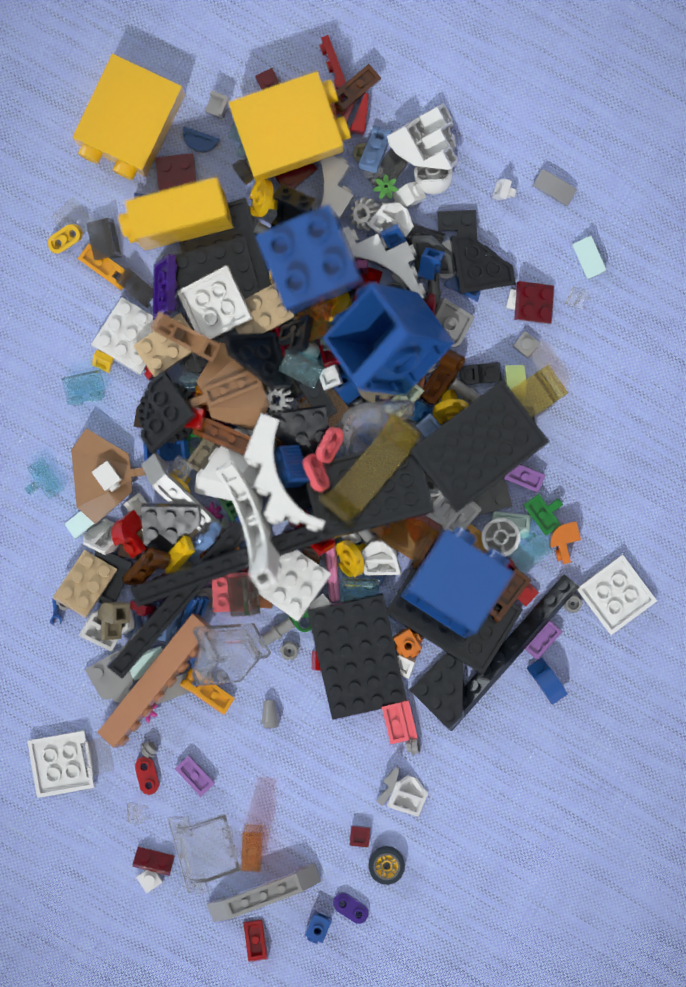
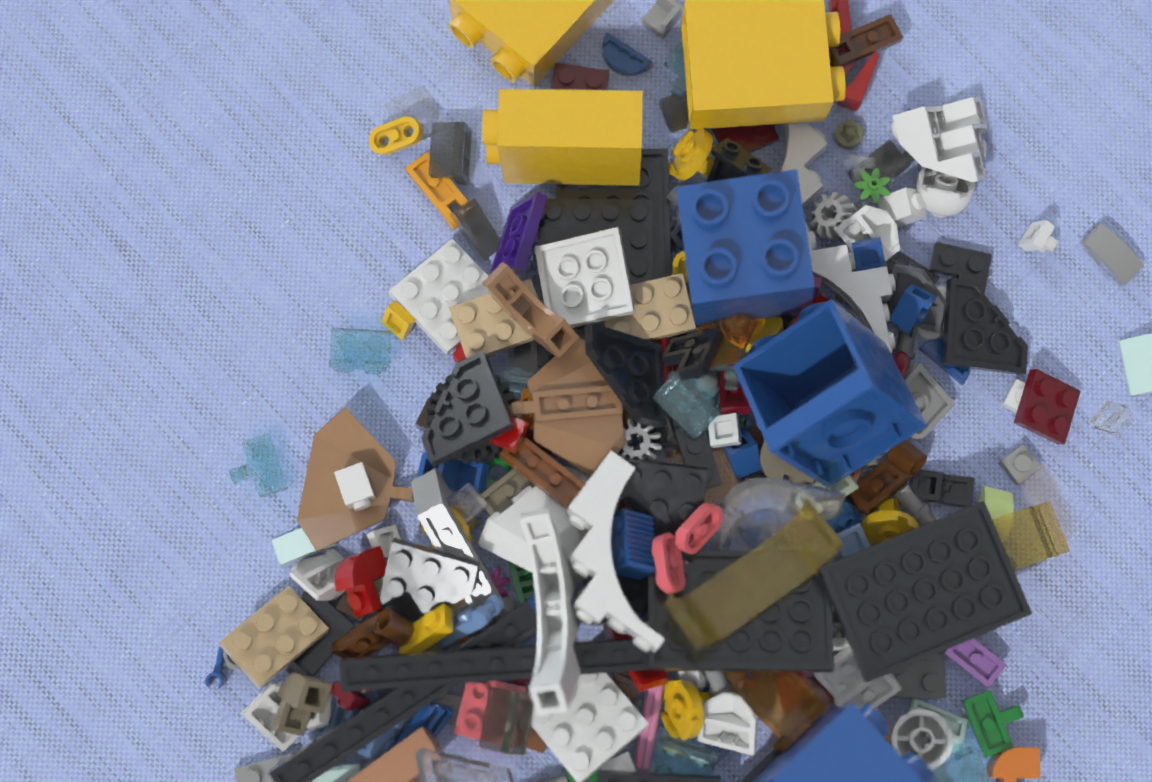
camera: 10 degrees right, 10 degrees down
(374, 150) = (869, 132): medium blue plate -> none

